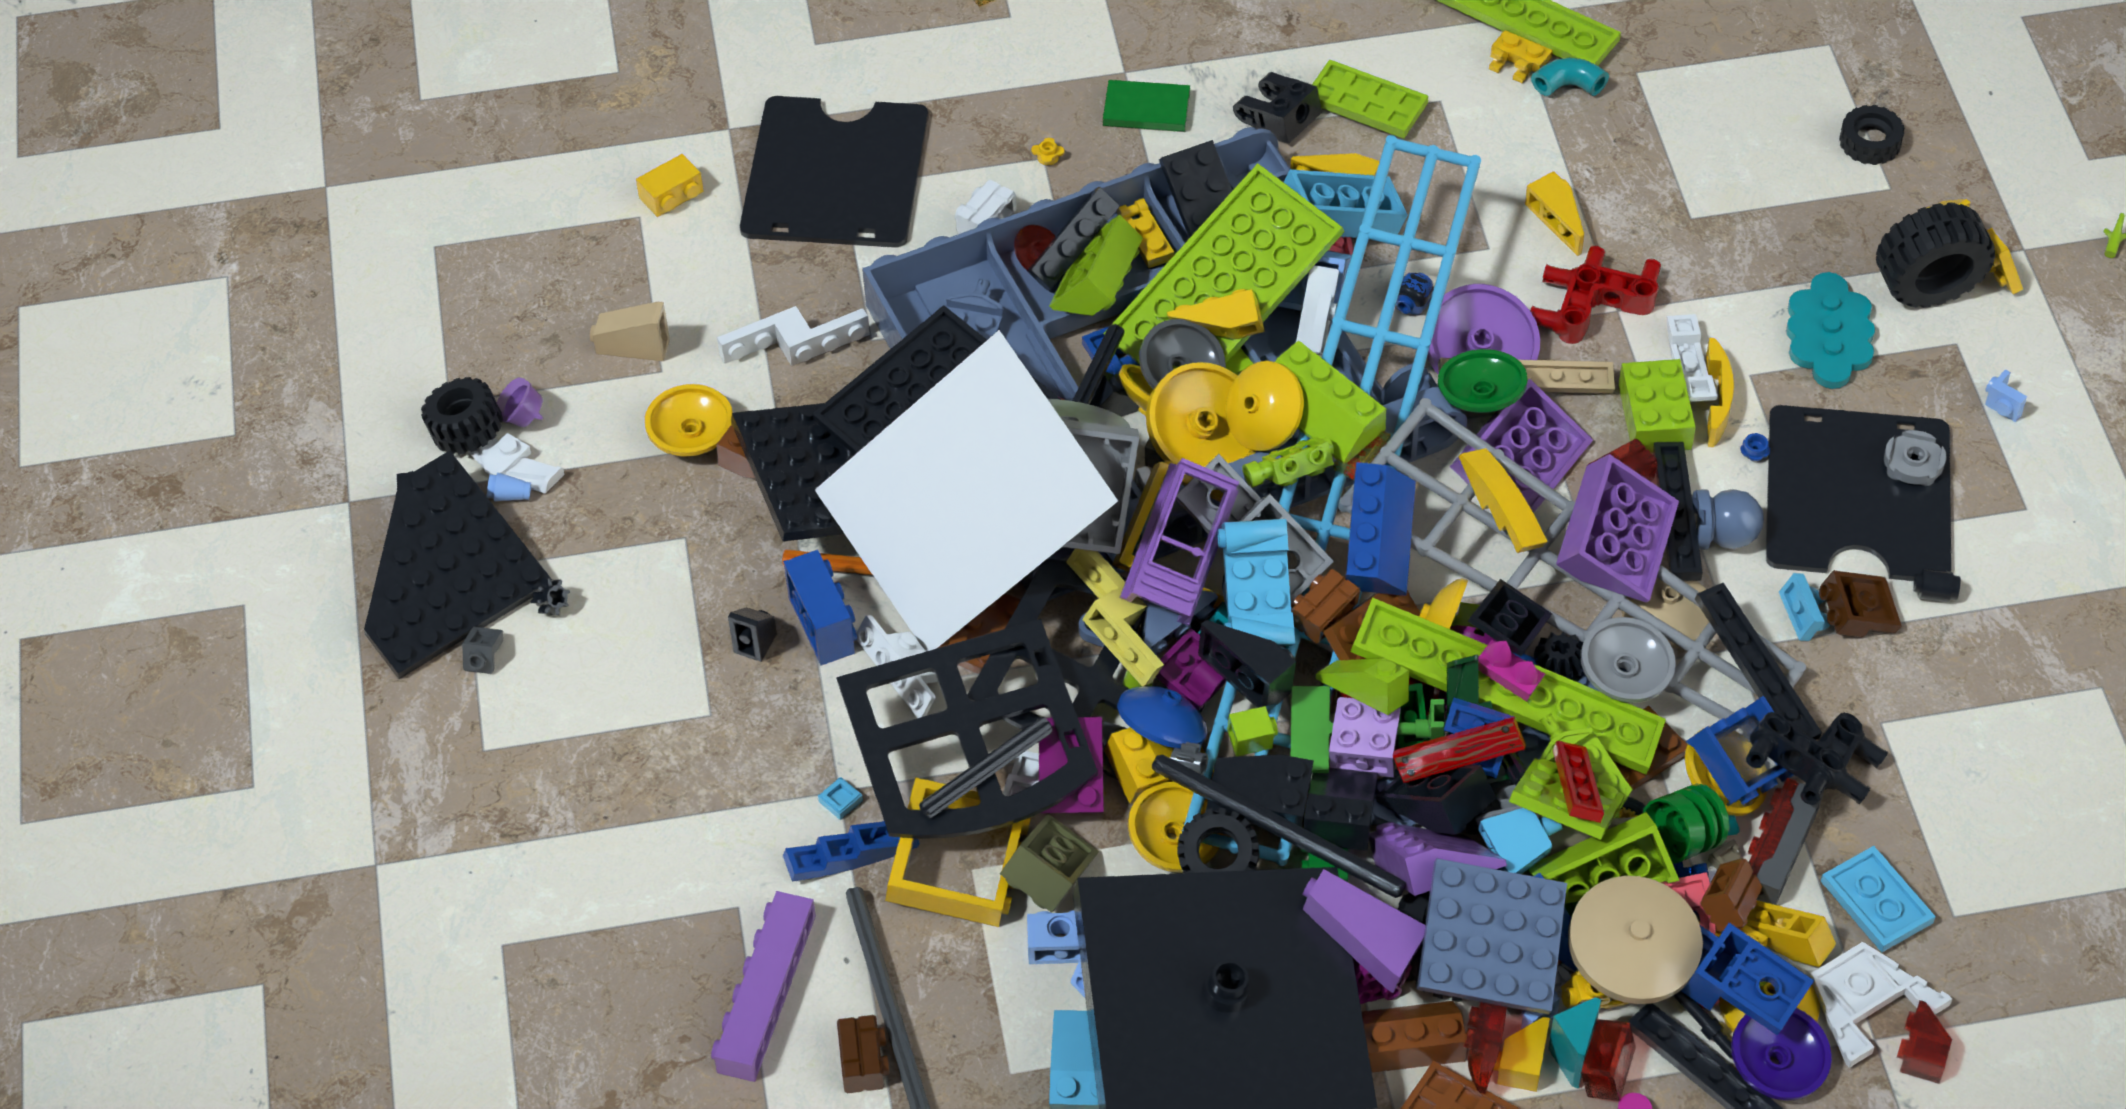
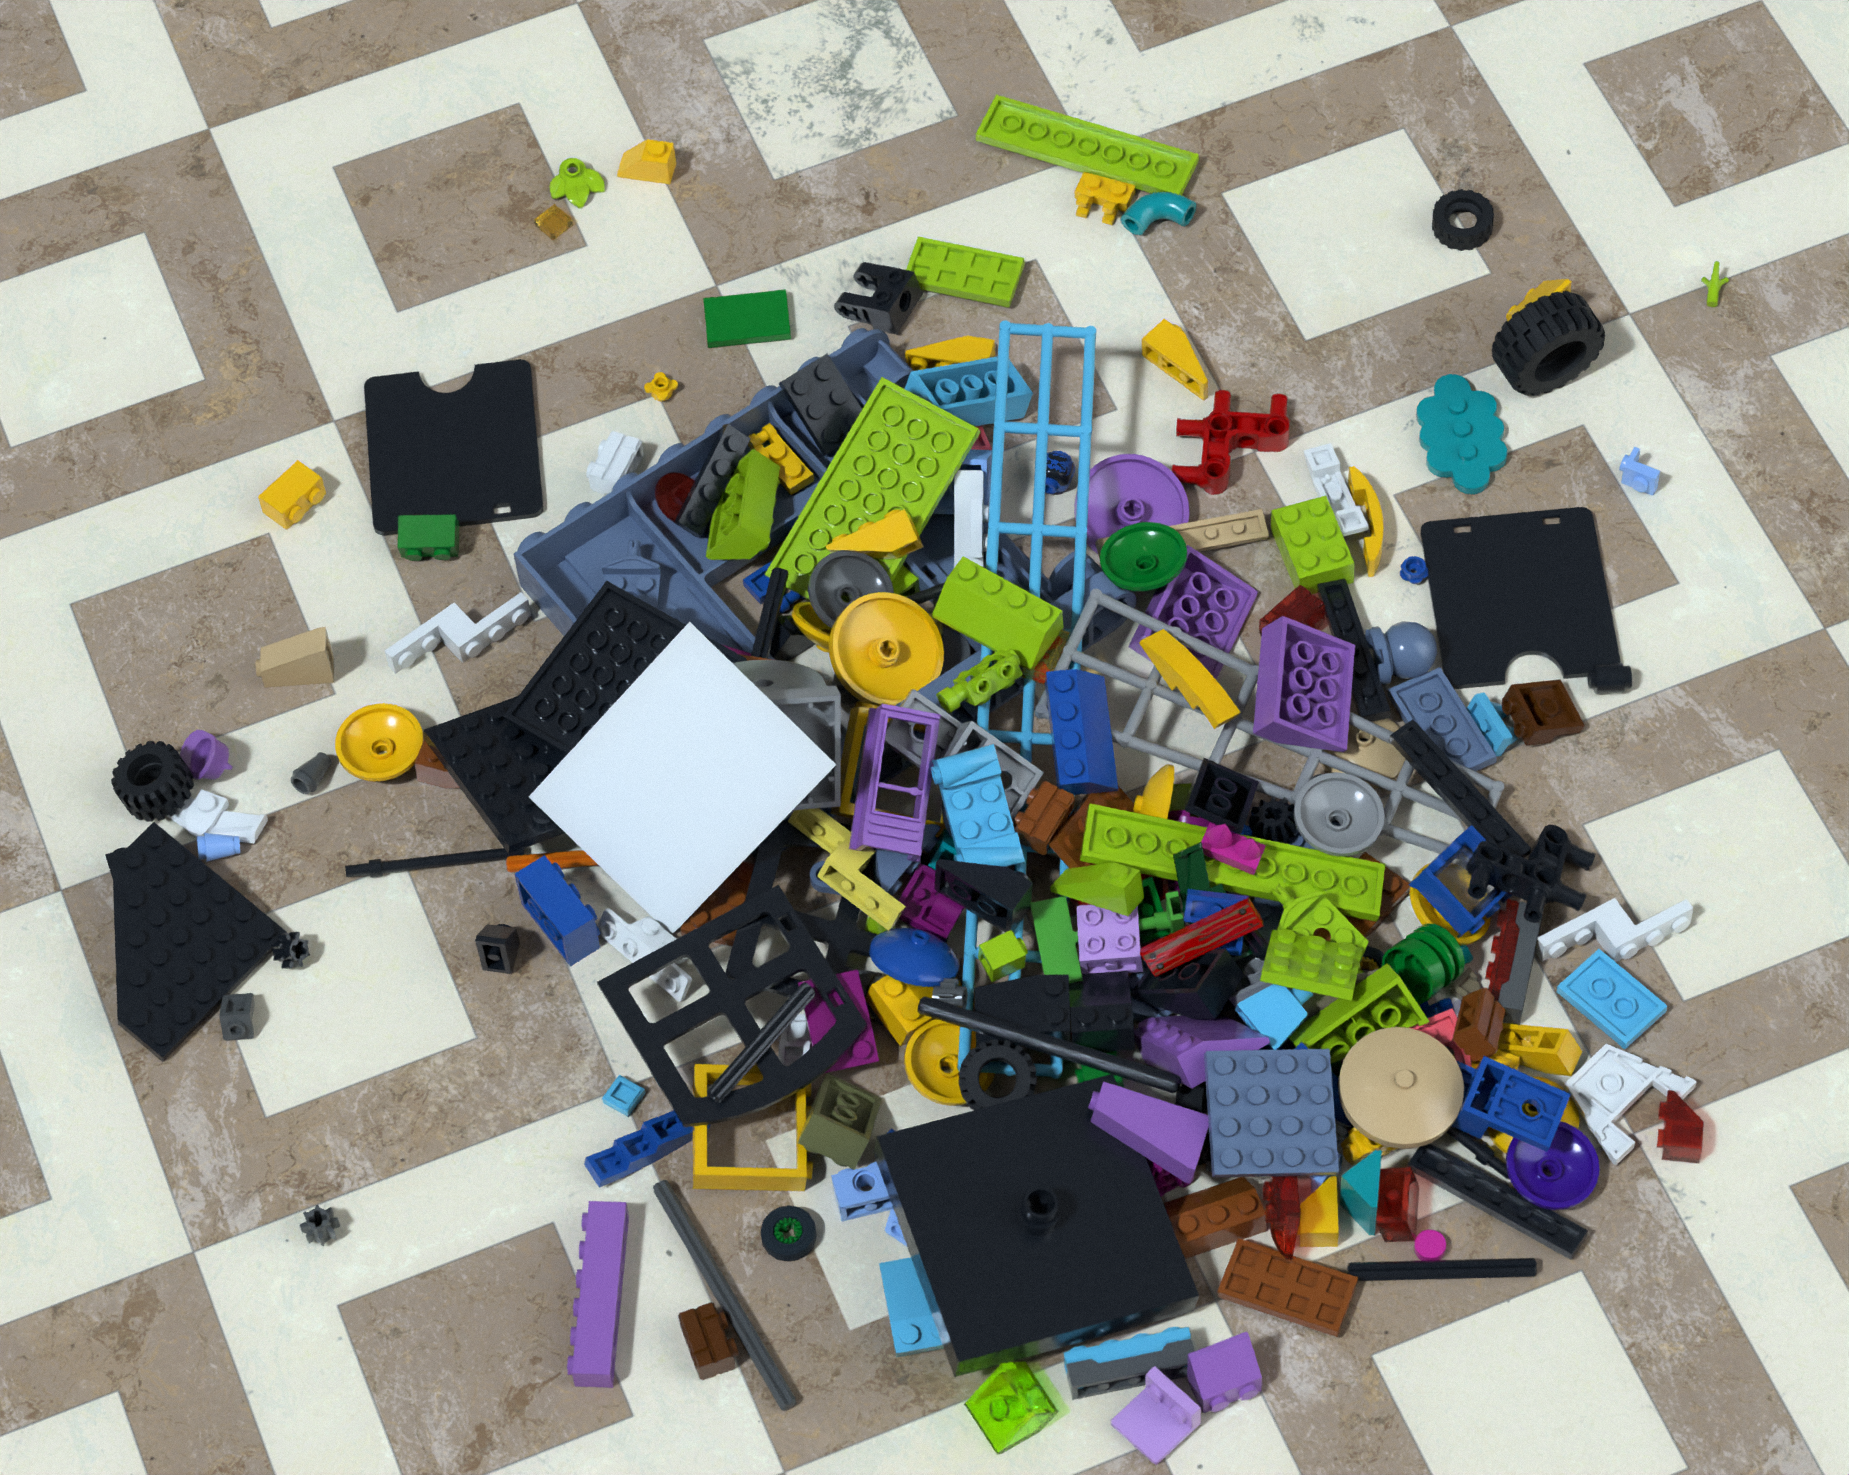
camera: 10 degrees left, 5 degrees up
(504, 862) = (319, 1233): none -> dark grey gear
(615, 439) = (309, 775): none -> dark grey cone
(656, 537) = (376, 867): none -> black bar
(788, 244) = (428, 536): none -> green brick
(969, 950) = (783, 1220): none -> black bush
(1275, 409) = (955, 624): yellow dish -> none
(1578, 781) = (1319, 948): red tile -> none
(1757, 591) = (1443, 717): none -> sand blue plate
(1893, 831) = (1614, 930): none -> white bracket
(1914, 471) = (1565, 567): light grey plate -> none
(2003, 265) = (1616, 342): yellow plate -> none

